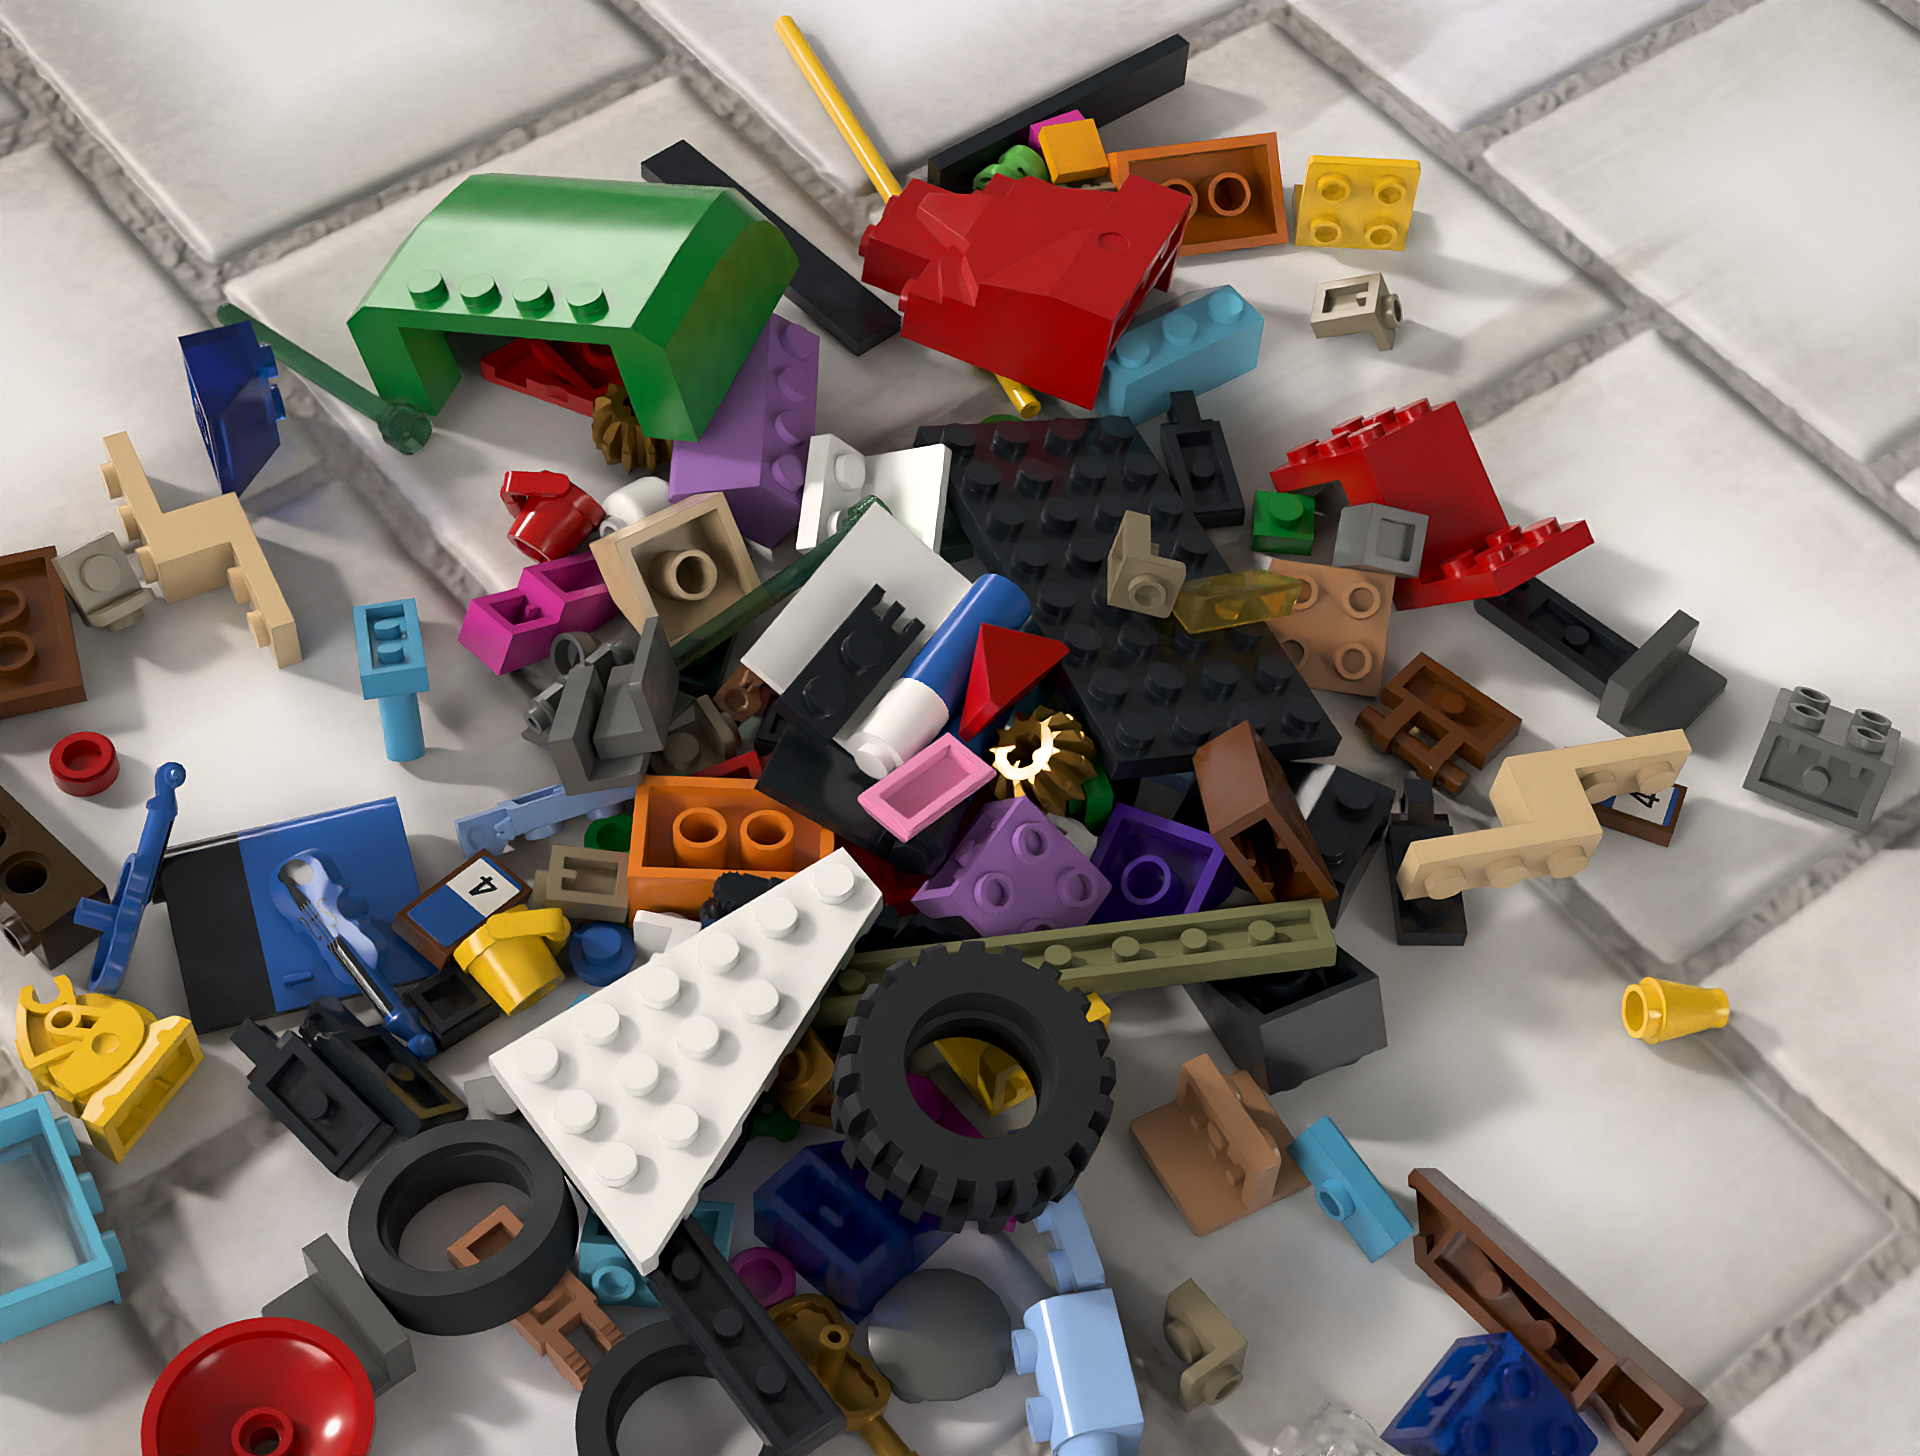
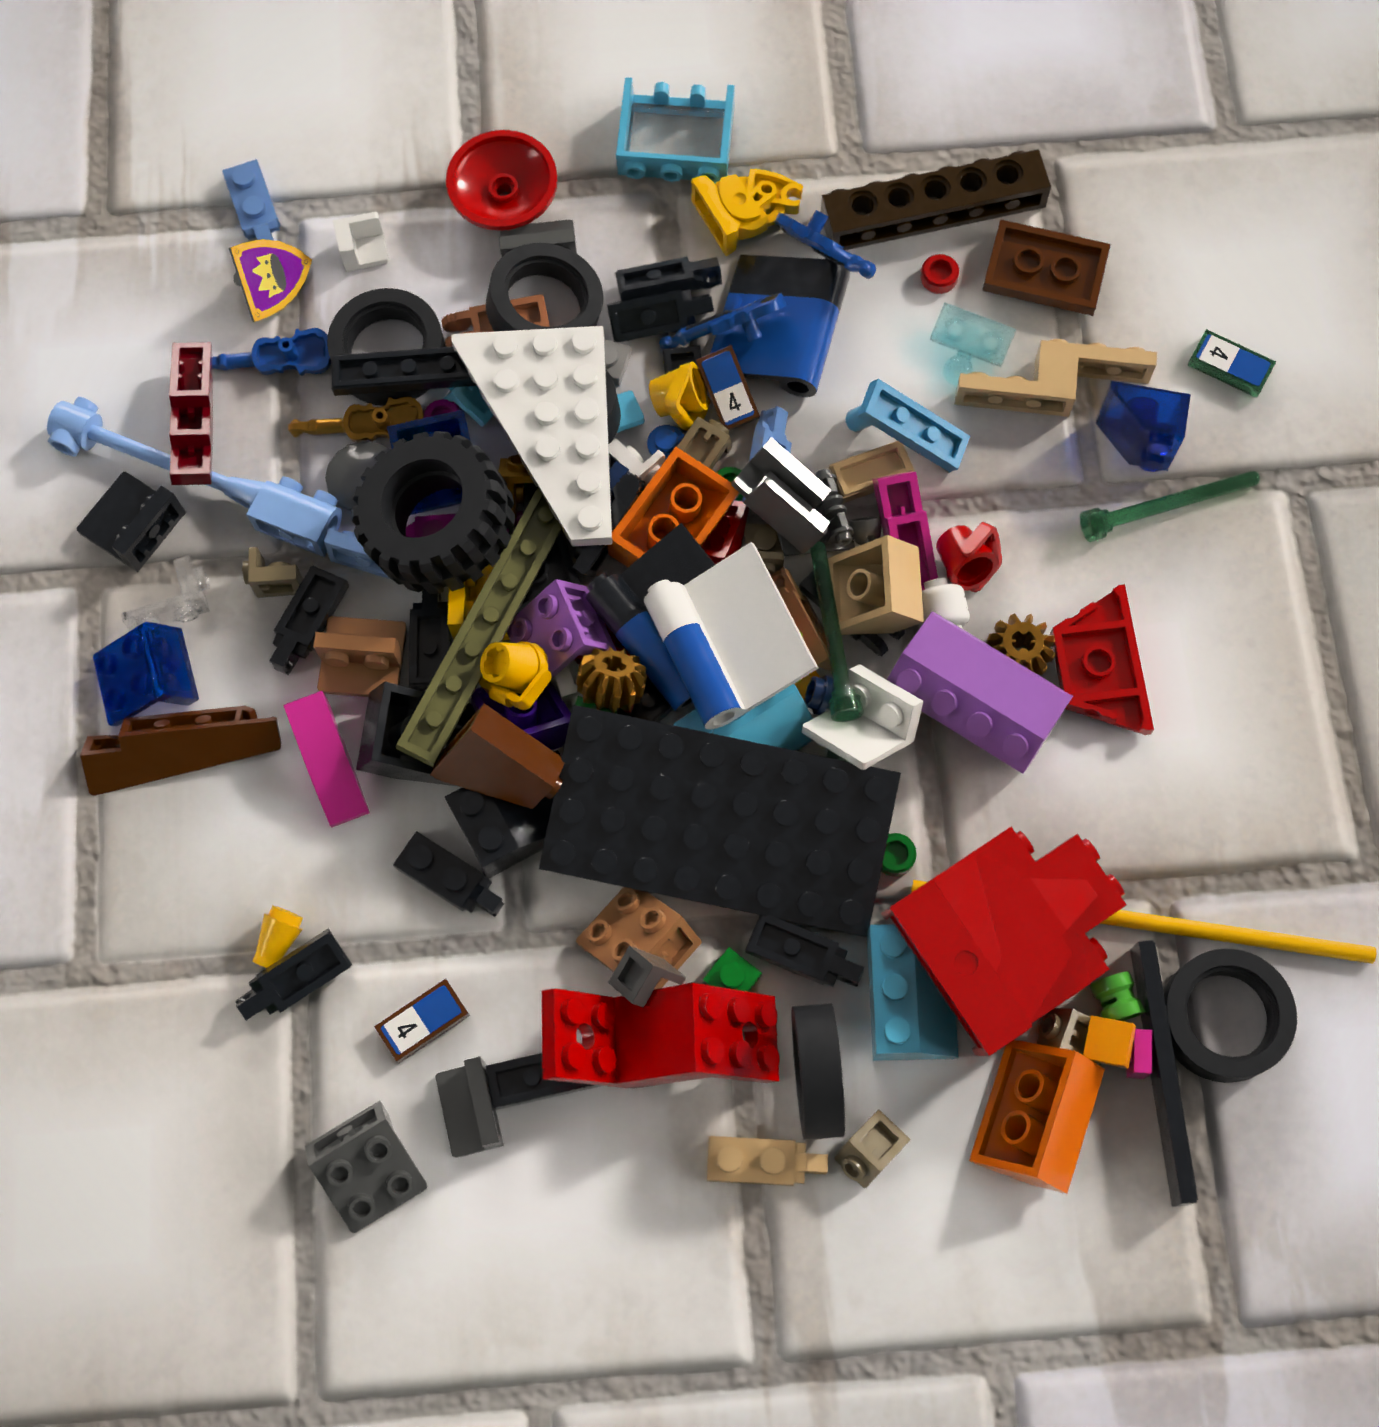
camera: 130 degrees right, 20 degrees up
(54, 392) = (1231, 363): none -> tile
(103, 583) = (1052, 320): dark tan bracket -> none
(185, 670) = (971, 337): none -> clear light blue plate
(477, 696) = (856, 473): none -> tan tile
(652, 269) = (1115, 636): green slope -> none
(819, 284) = (1151, 814): black tile -> none
(846, 669) = (719, 599): black hinge -> none
(926, 787) = (617, 595): bright pink tile -> none
(945, 53) = (1271, 989): none -> black tyre
(1003, 672) = (666, 682): red slope -> none
(1112, 882) = (512, 670): none -> yellow piece
(1137, 575) = (706, 809): dark tan bracket -> none
(1151, 1060) = (427, 639): none -> black hinge
(1225, 1257) = (306, 614): none -> black hinge
(1235, 599) = (664, 863): clear yellow slope -> none
(1308, 327) = (818, 1071): none -> black tyre
(1349, 1189) = (290, 686): dark azure plate -> none
(1355, 202) = (968, 1217): yellow bracket -> none
(1403, 1094) = (326, 758): none -> dark pink slope
(1445, 380) = (761, 1161): none -> tan hinge
(1448, 711) = (534, 964): reddish brown plate -> none
(1543, 815) = (416, 943): tan bracket -> none
(1706, 957) = (295, 976): none -> black hinge

